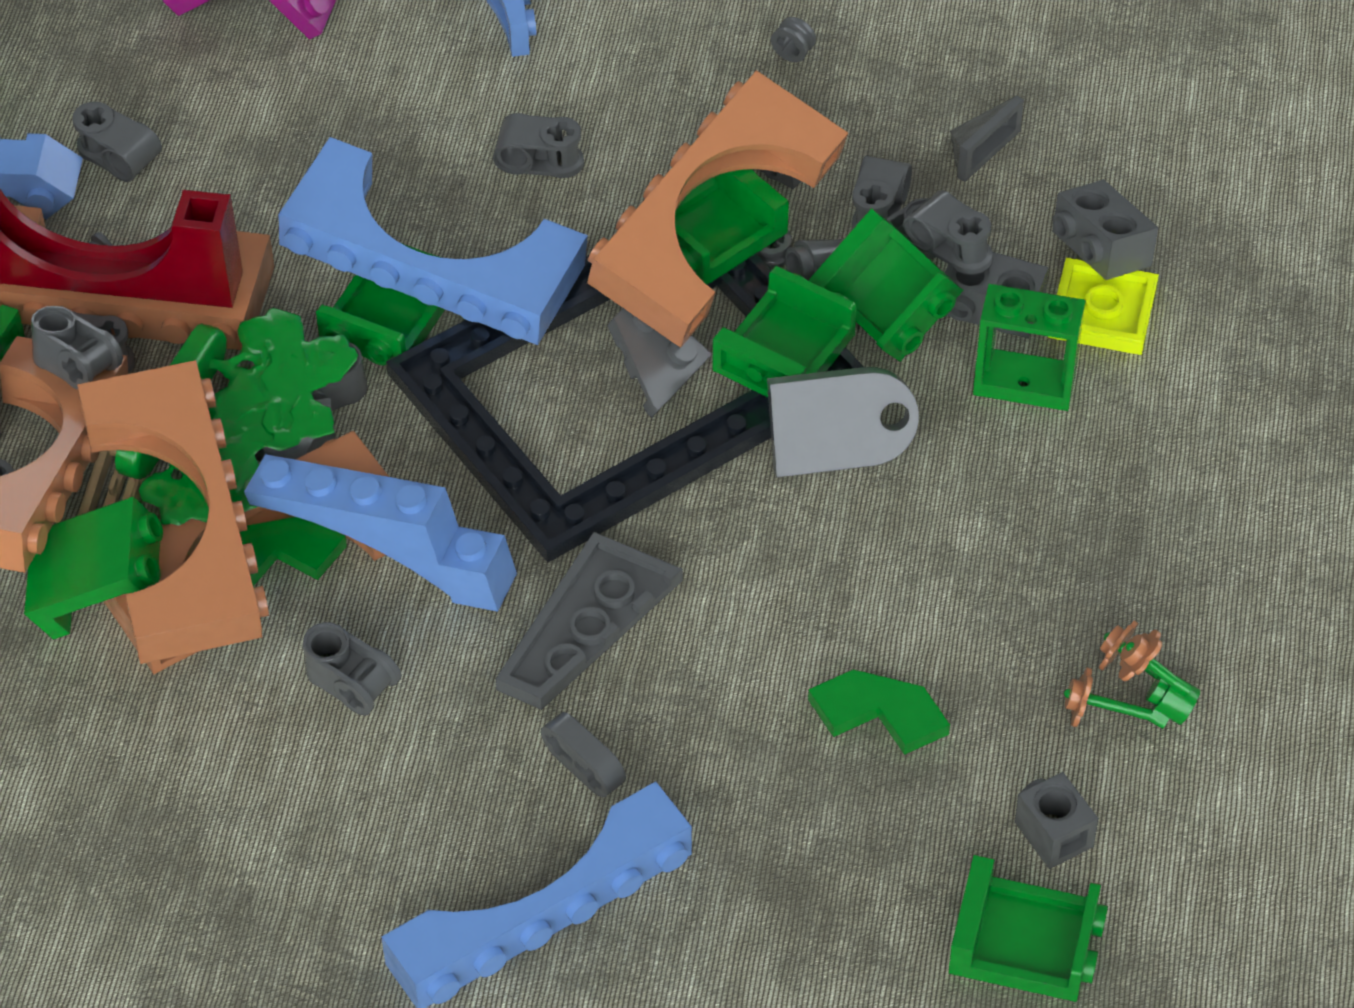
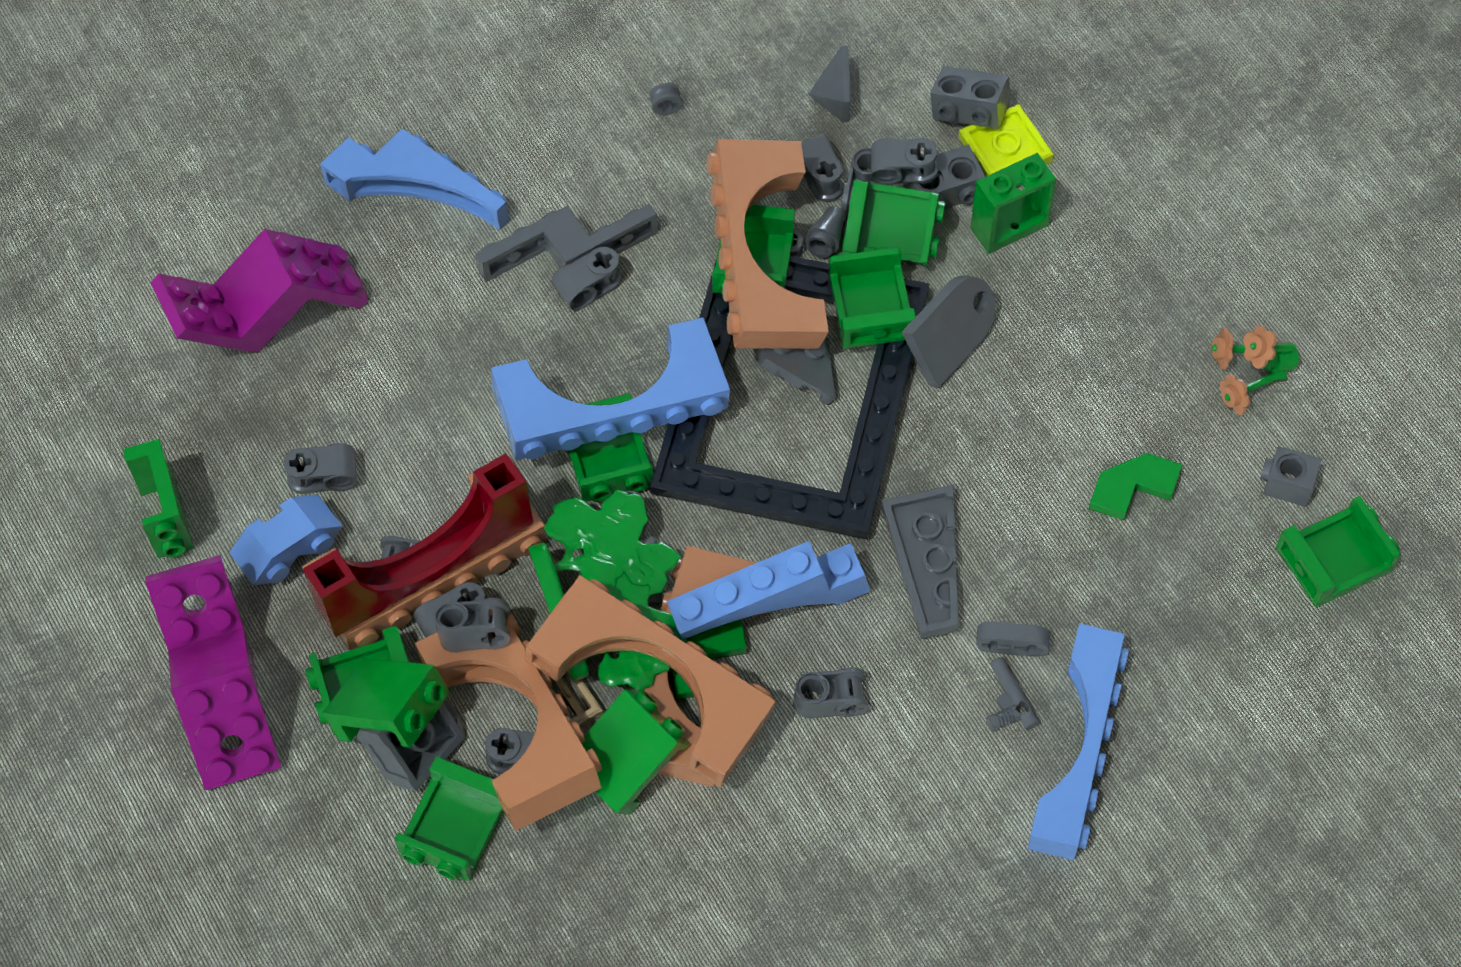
camera: 40 degrees left, 10 degrees up
(520, 813) = (1010, 700): none -> dark grey hose
(554, 91) = (564, 240): none -> dark grey bracket

